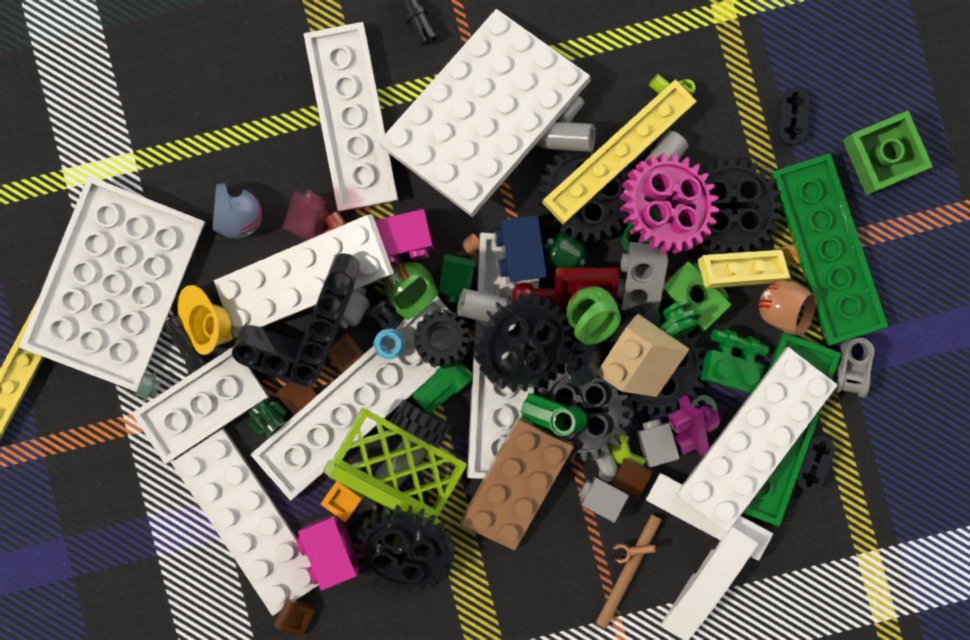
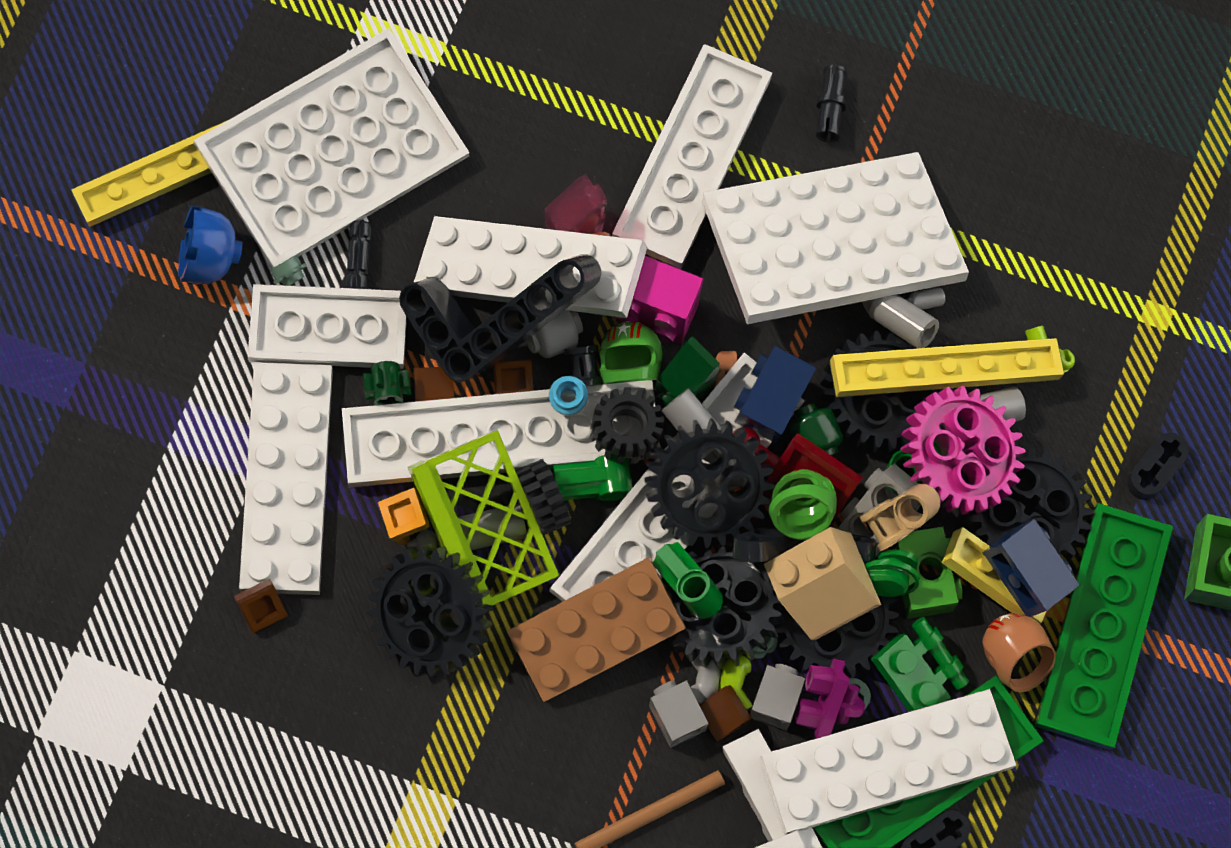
camera: 30 degrees right, 15 degrees down
(83, 410) = (207, 247): none -> blue cylinder
(203, 321) = (395, 244): yellow piece -> none
(236, 215) = (505, 165): sand blue helmet -> none
(328, 551) = (350, 556): dark pink brick -> none
(633, 551) = (670, 792): nougat hand -> none
(659, 283) = (896, 517): none -> tan piece
(764, 250) = (1031, 568): none -> dark blue brick
(852, 369) = (1043, 770): light grey piece -> none

